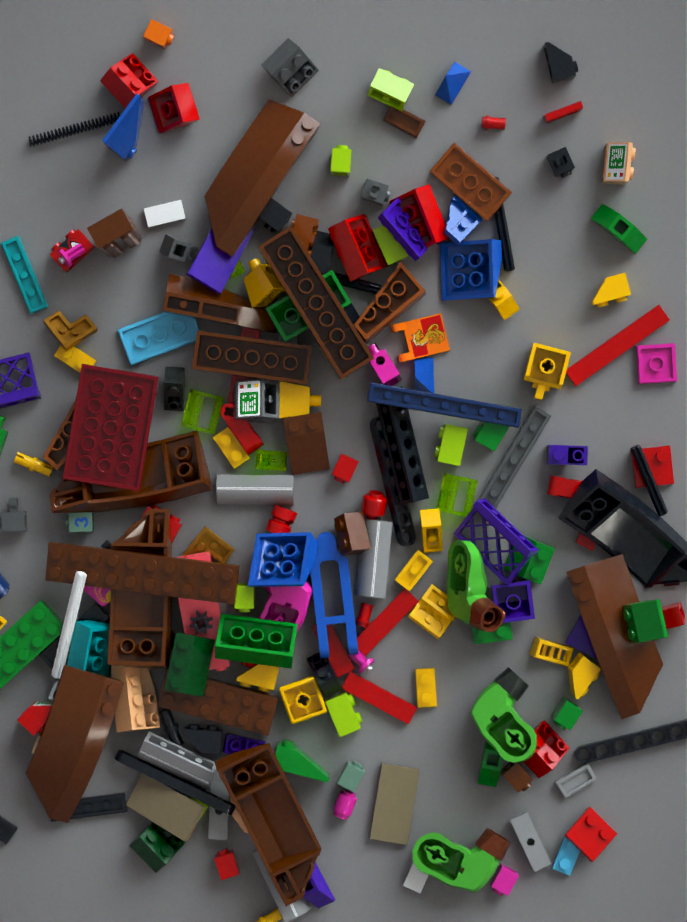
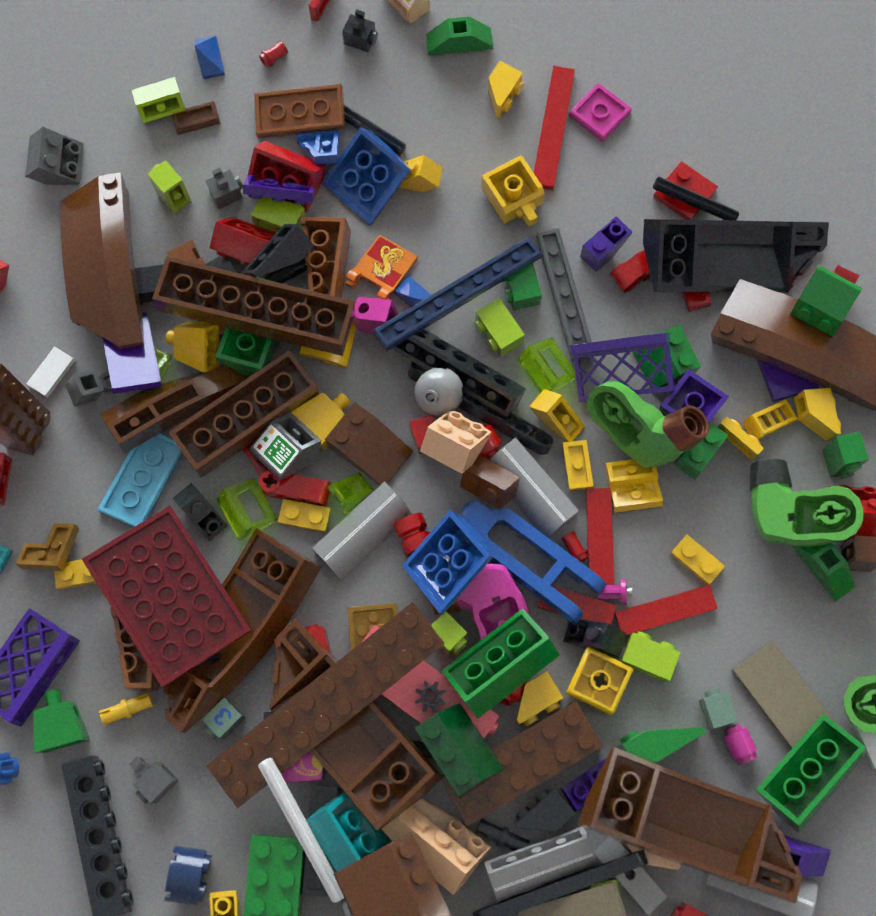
camera: 35 degrees left, 15 degrees down
(354, 493) = (455, 441): none -> light nougat slope
(361, 281) = (284, 249): none -> black slope
(365, 854) = (811, 772): none -> green slope
(374, 452) = (438, 391): none -> light grey cylinder
(522, 653) = (747, 444): none -> yellow plate

